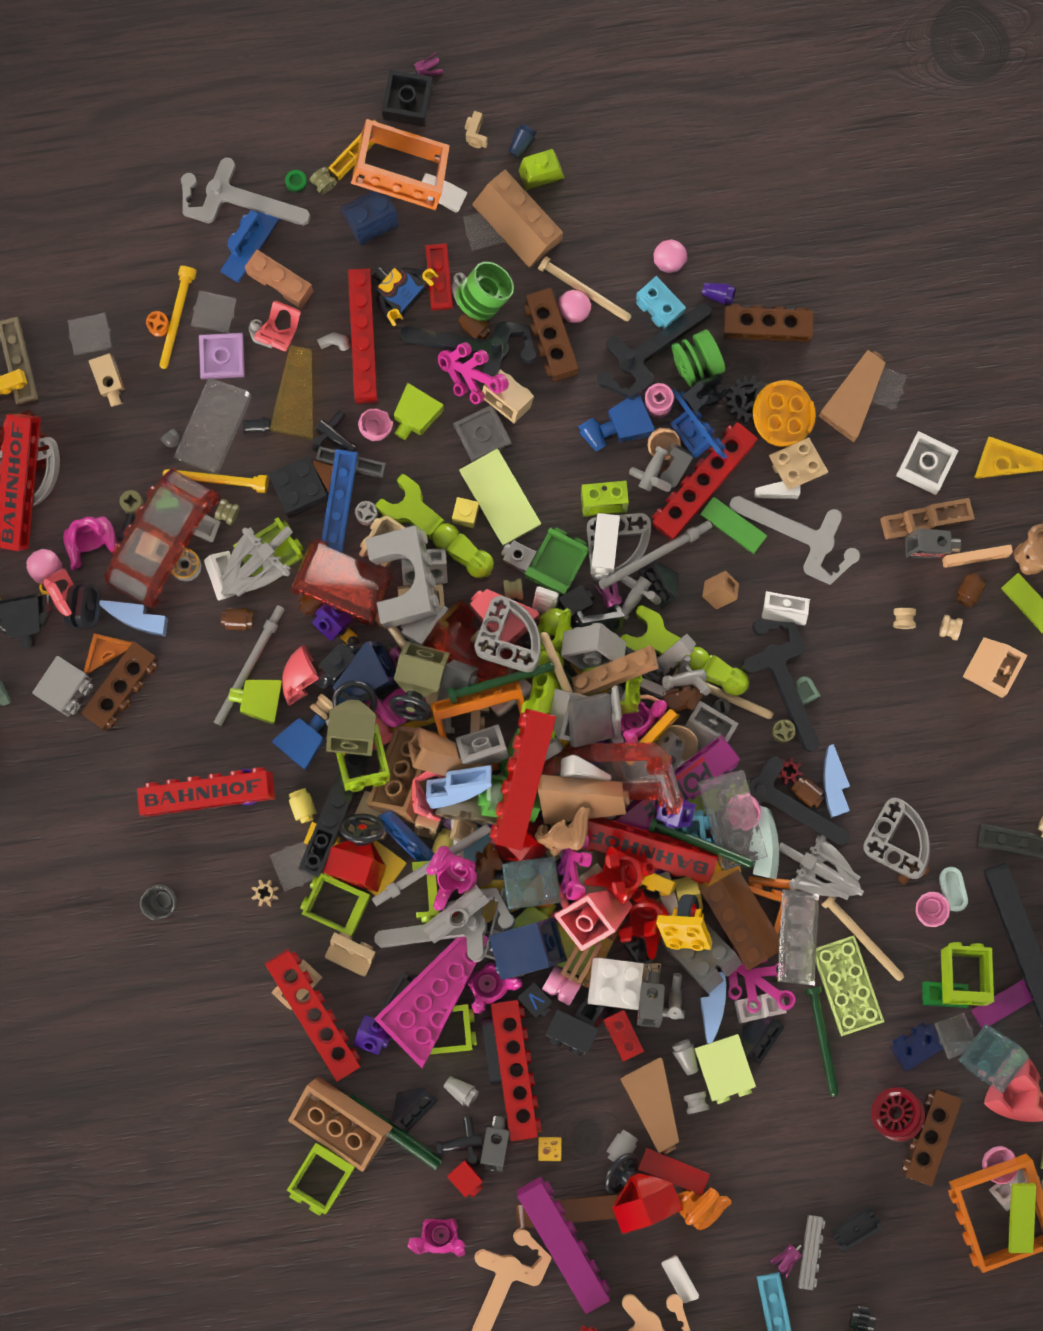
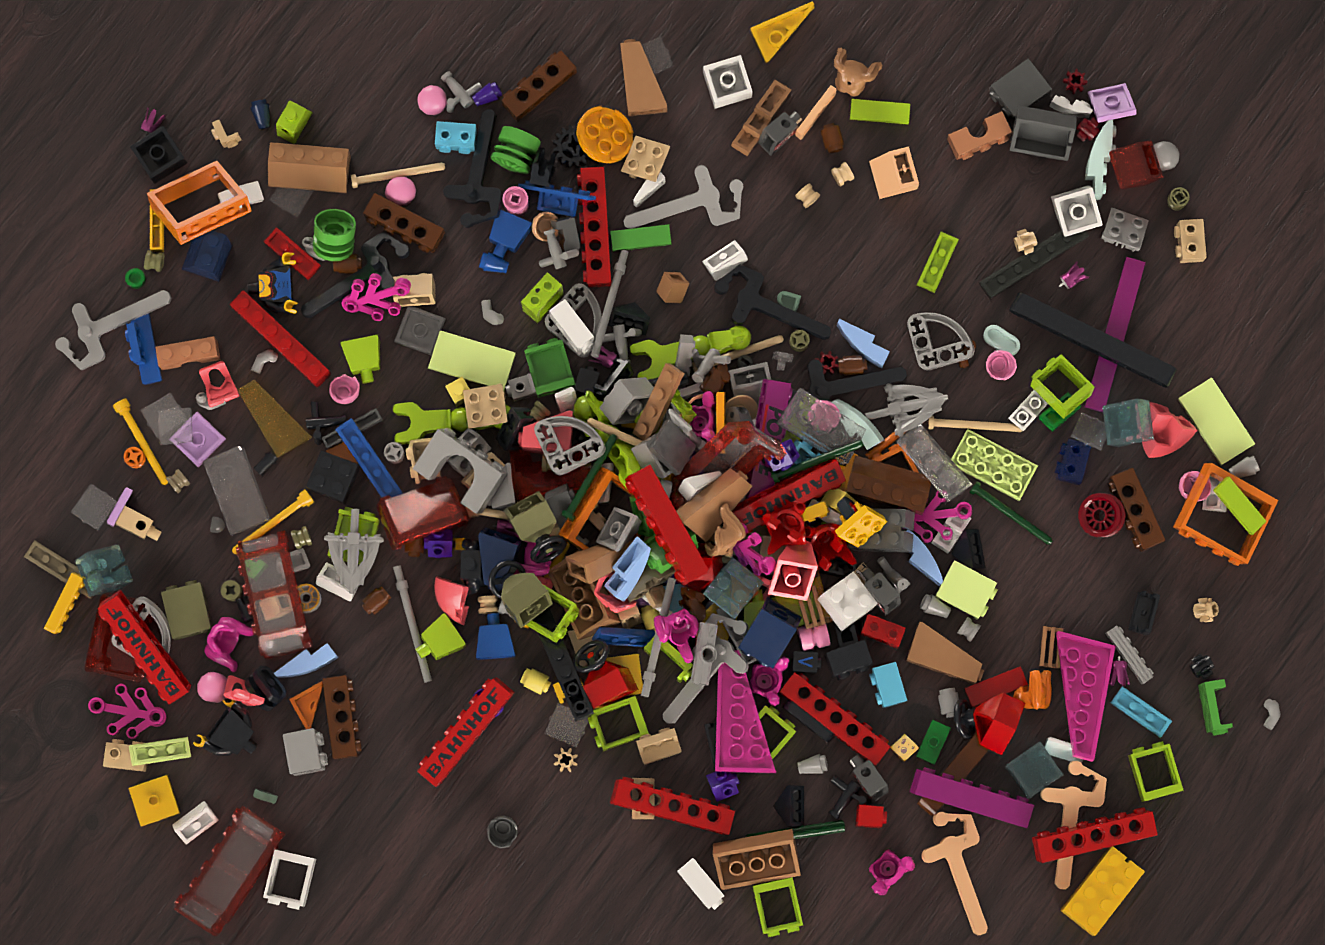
camera: 45 degrees left, 0 degrees up
(41, 387) = (97, 568): none -> clear light blue piece
(81, 484) = (187, 610): none -> olive brick
(113, 348) = (119, 506): none -> lavender tile
(173, 374) = (178, 480): none -> dark tan wheel
(213, 329) = (175, 426): none -> clear piece
(275, 1101) = (701, 884): none -> white window
(473, 543) = (485, 406): none -> tan hinge
(479, 580) = (510, 429): none -> black hinge
(550, 474) = (490, 315): none -> light grey arm
(578, 1167) = (933, 742): none -> green plate
(585, 1084) = (888, 685): none -> medium azure brick
(638, 1271) = (1033, 770): none -> clear light blue piece
(697, 274) = (458, 91): none -> light grey piece
(752, 1238) = (1085, 680): none -> dark pink wing
(755, 733) = (782, 358): none -> clear tile
(765, 1170) = (1051, 647): none -> medium nougat tile
(910, 1277) = (1205, 609): none -> tan gear
(919, 968) = (1028, 410): none -> white slope
(961, 774) = (937, 262): none -> lime tile

